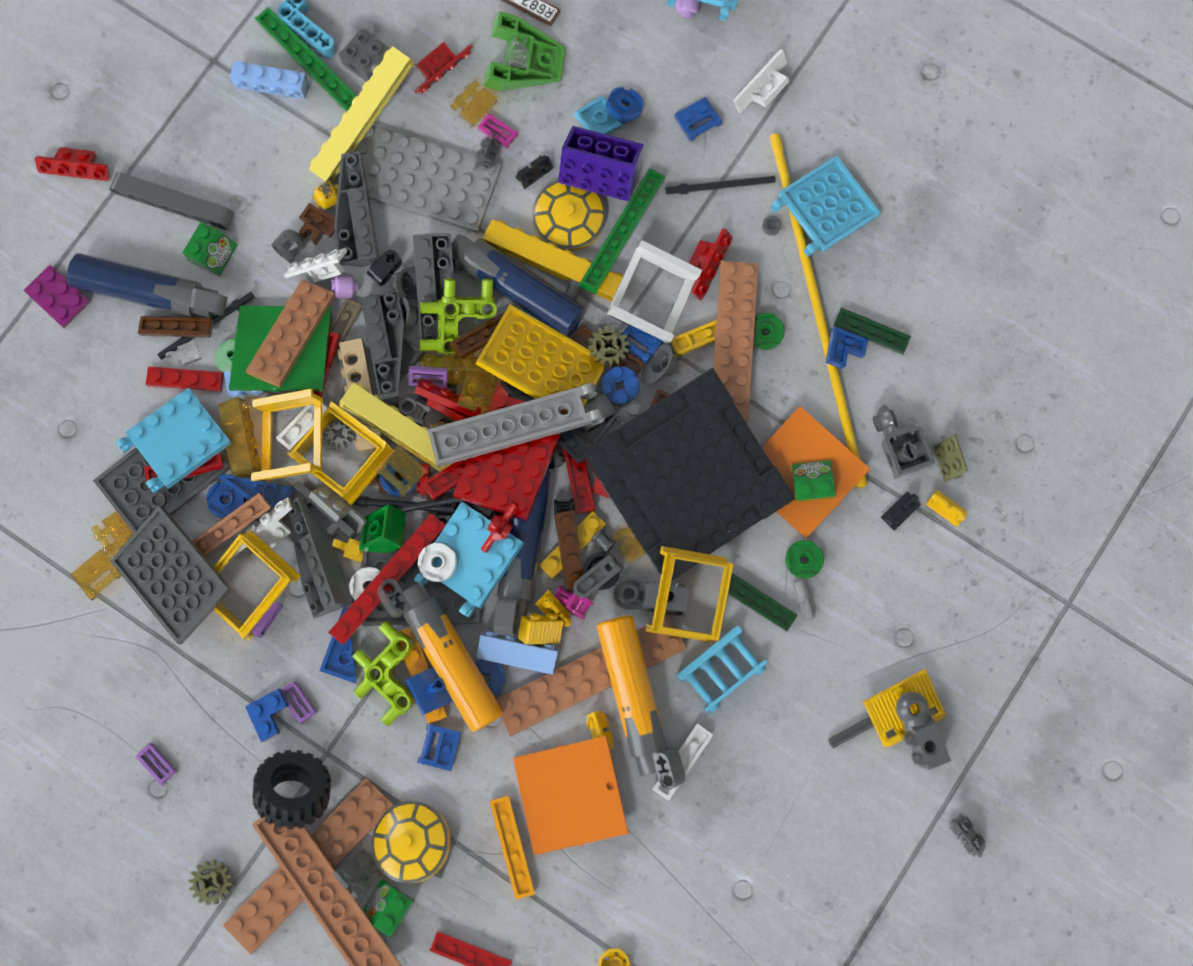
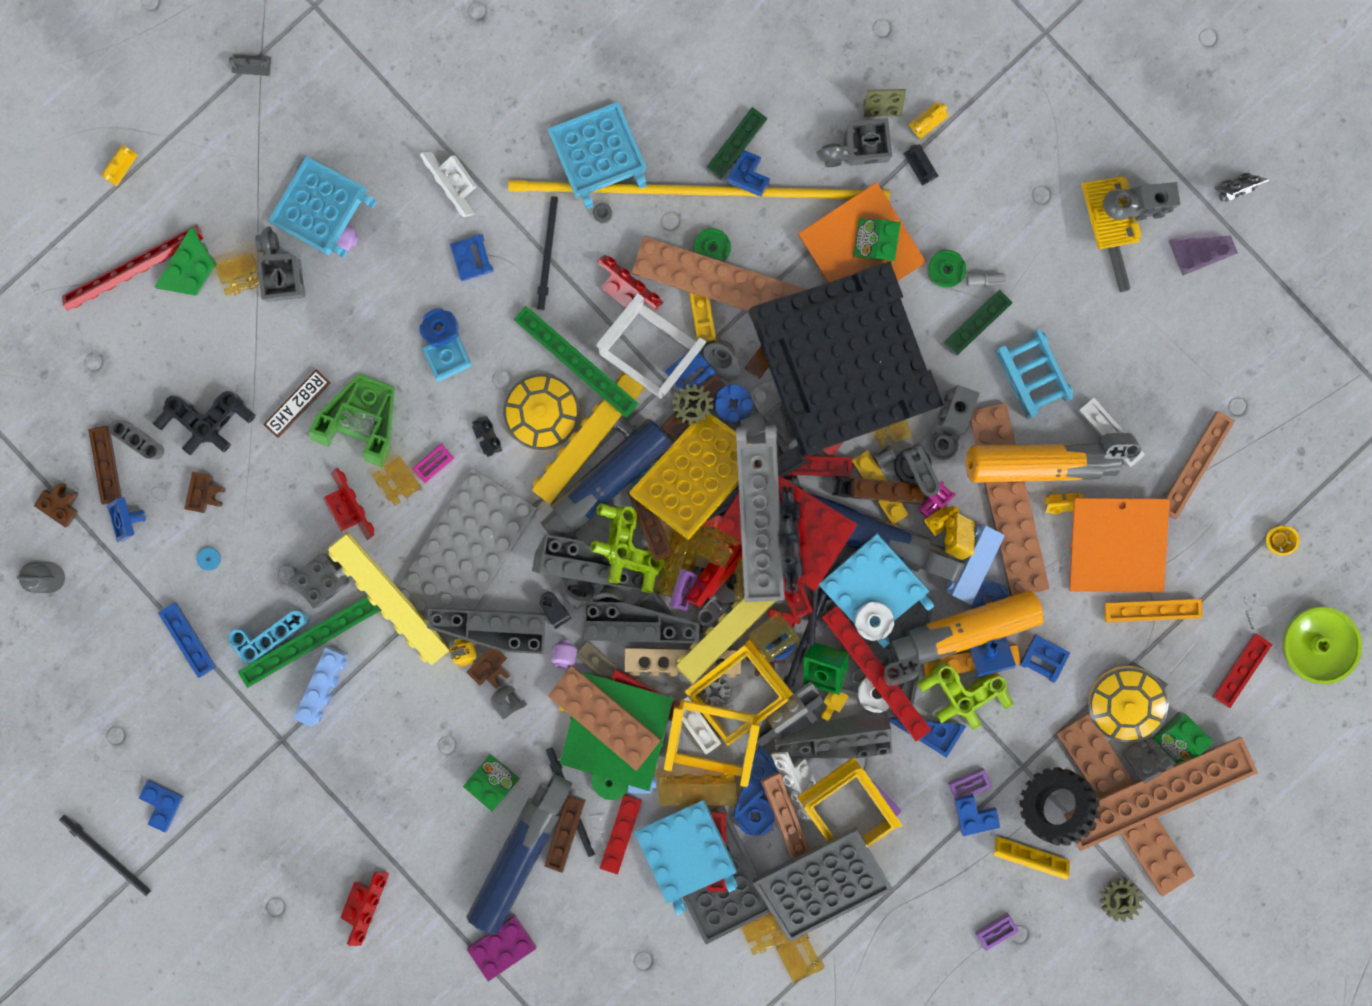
camera: 85 degrees left, 10 degrees up
(171, 200) = (428, 812): dark grey beam -> none
(236, 780) = (1031, 857): none -> yellow plate
(319, 267) = (539, 676): white bracket -> none
(488, 151) = (455, 478): dark grey hinge -> none
(494, 449) = (789, 539): none -> black pin
(499, 527) = (860, 552): red bar -> none
(600, 163) = (502, 366): dark purple brick -> none
(664, 587) = (928, 375): yellow piece -> none
(672, 858) = (1198, 462): none -> nougat plate
(888, 810) = (1201, 252): none -> clear purple wing

